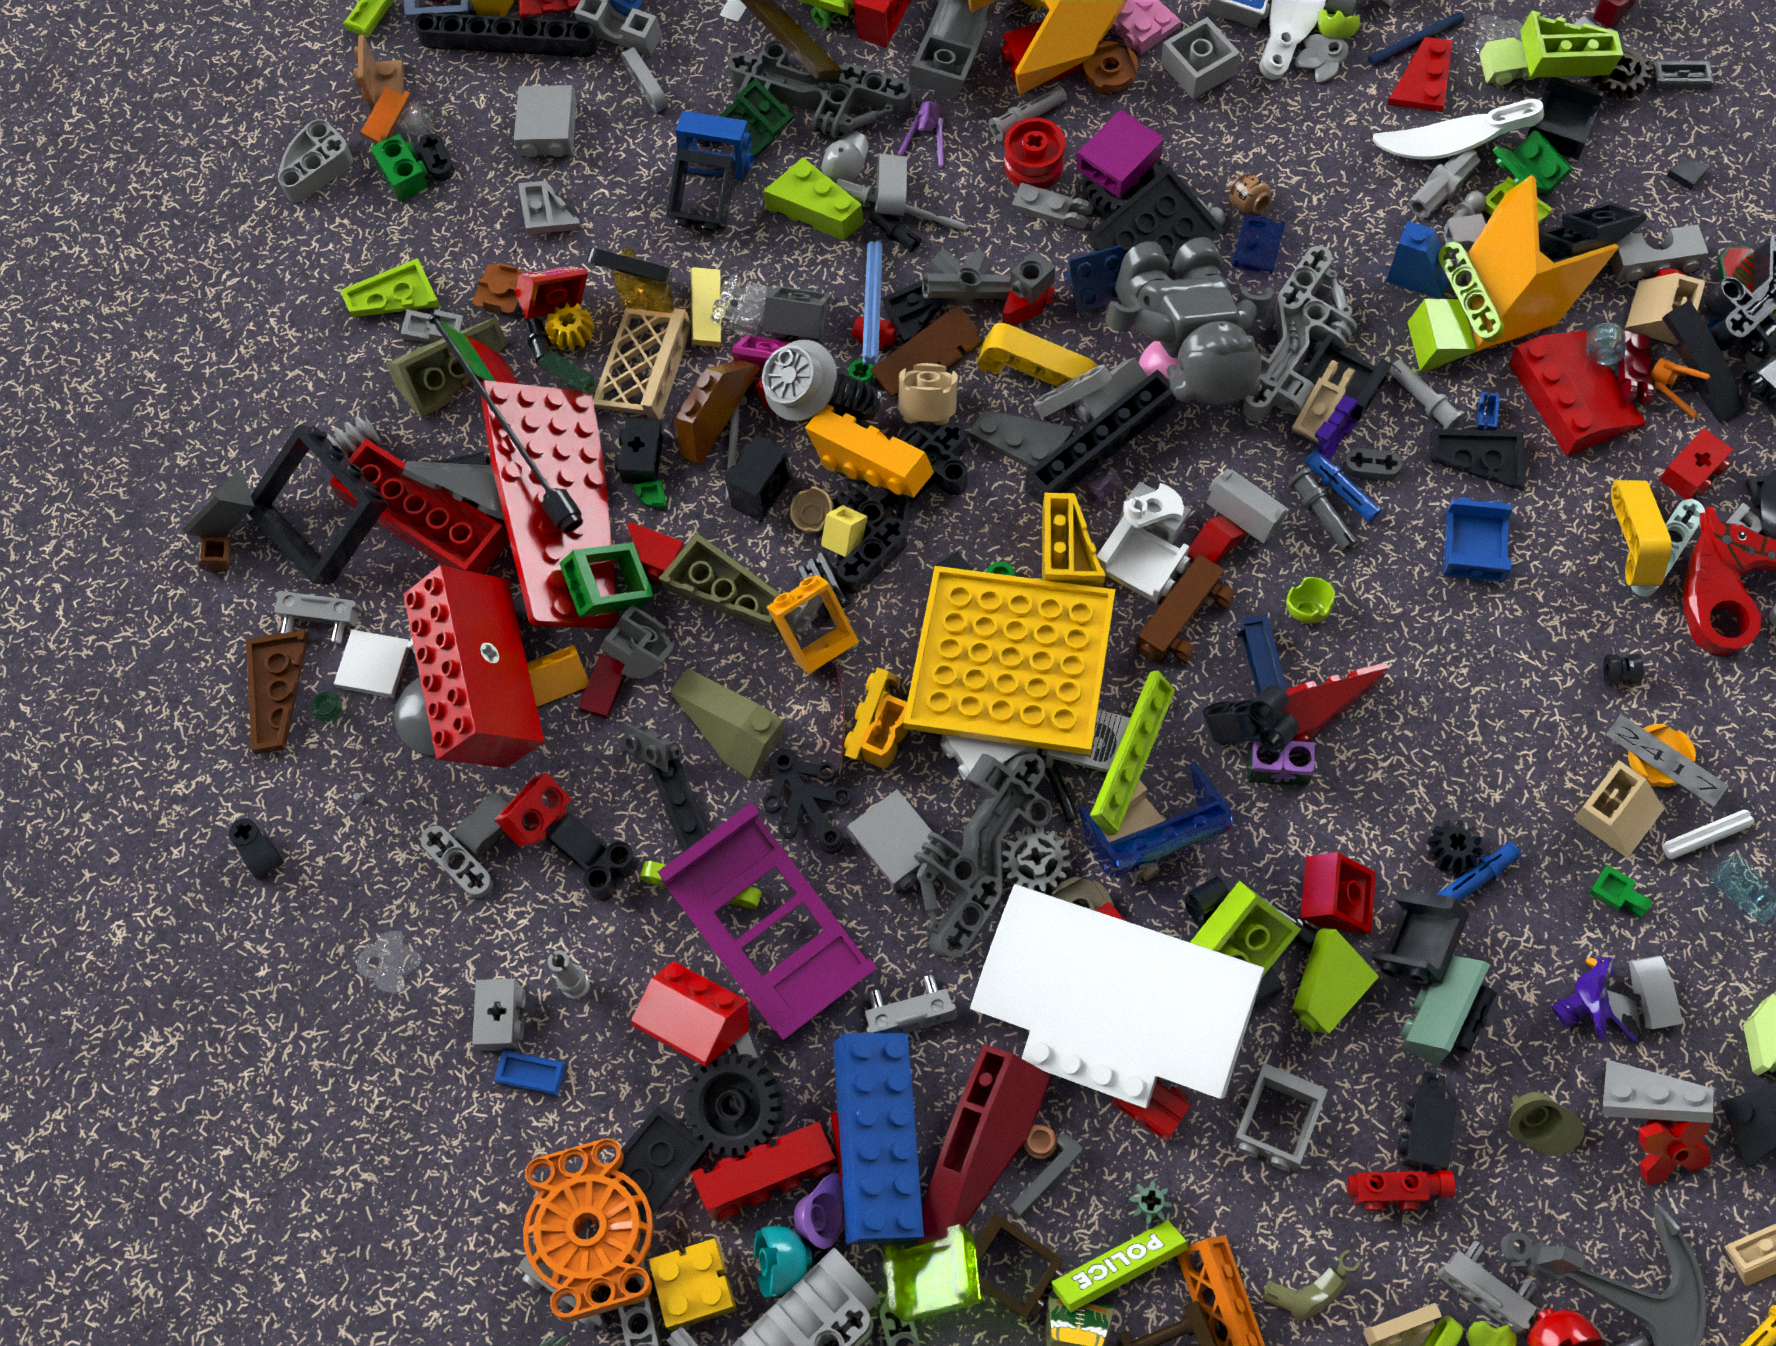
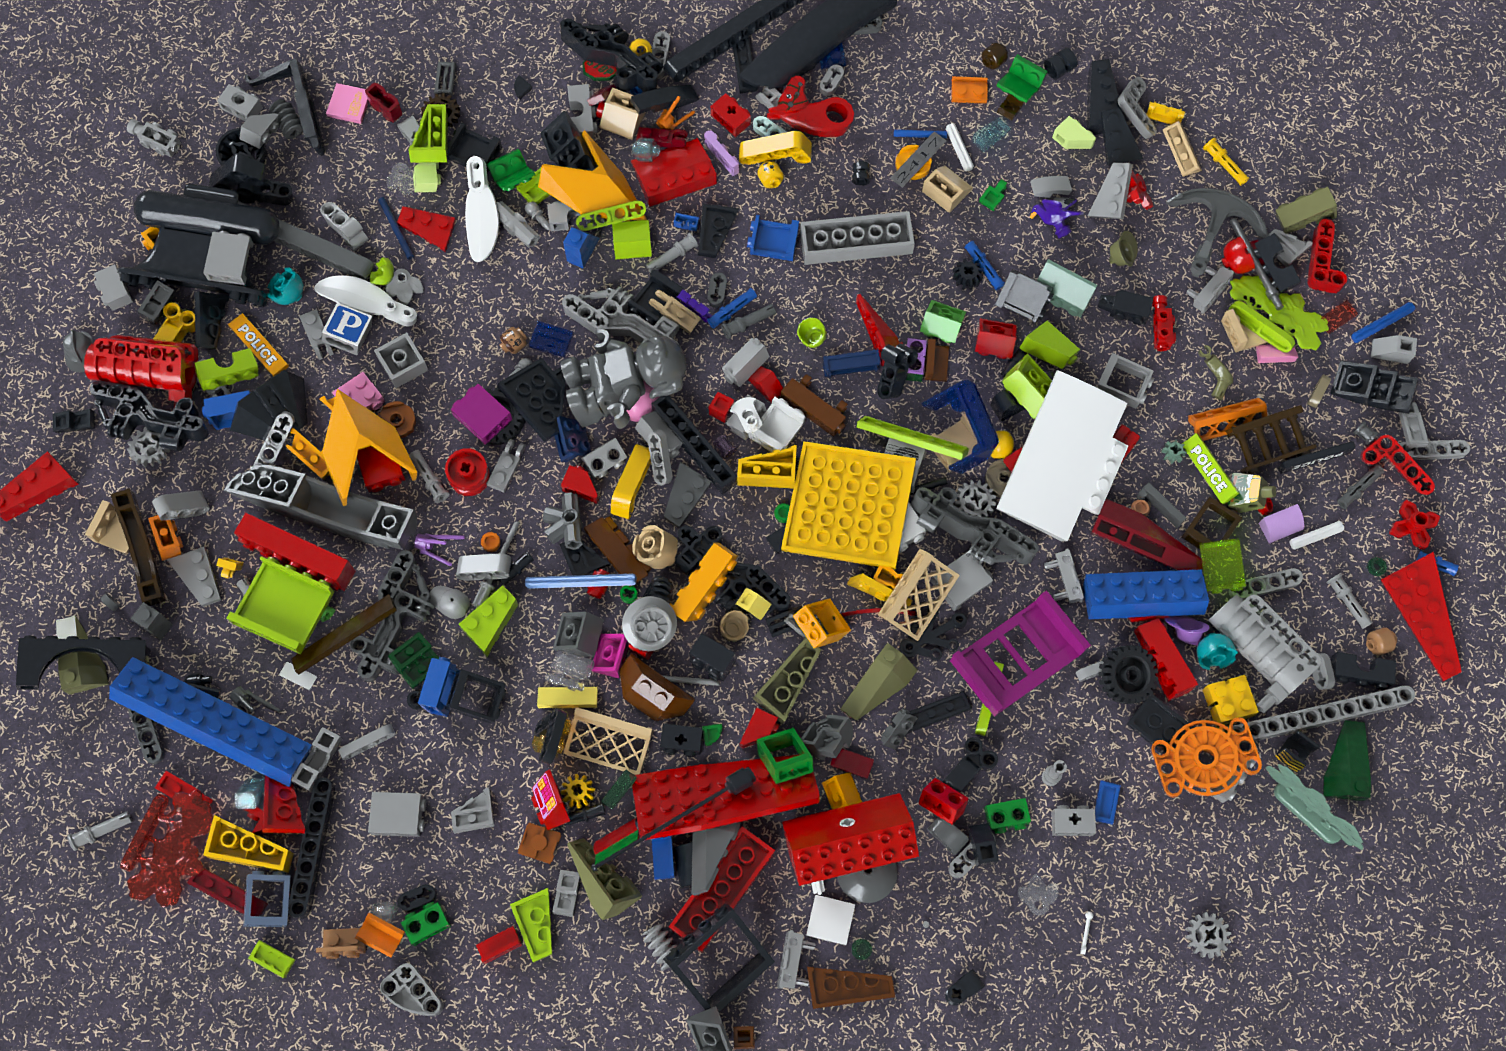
camera: 95 degrees left, 5 degrees up
(294, 1239) = (1201, 929): none -> light grey gear
(352, 1041) = (1089, 915): none -> white hinge
(366, 251) = (498, 945): none -> red panel
(459, 866) = (983, 845): none -> black slope
(464, 441) = (663, 858): none -> blue panel
(518, 910) = (1005, 810): none -> green brick
(691, 1014) = (1078, 698): slope -> none
(862, 735) = (904, 589): none -> tan fence
(934, 197) = (490, 542): none -> orange tile
(1034, 267) = (572, 468): dark grey brick -> none
(1072, 320) = (602, 454): none -> light grey brick
(1138, 899) = (1005, 445): none -> yellow hair
(1168, 471) = (720, 406): none -> red panel
(1284, 797) = (936, 362): none -> reddish brown panel
(1359, 806) = (942, 321): none -> slope
(1495, 663) = (856, 238): none -> light grey brick
(1594, 528) = (770, 174): none -> yellow head
(1624, 454) = (721, 153): none -> lavender hinge
(1688, 268) = (600, 95): none -> dark red tile
(1723, 767) = (917, 133): none -> blue bar

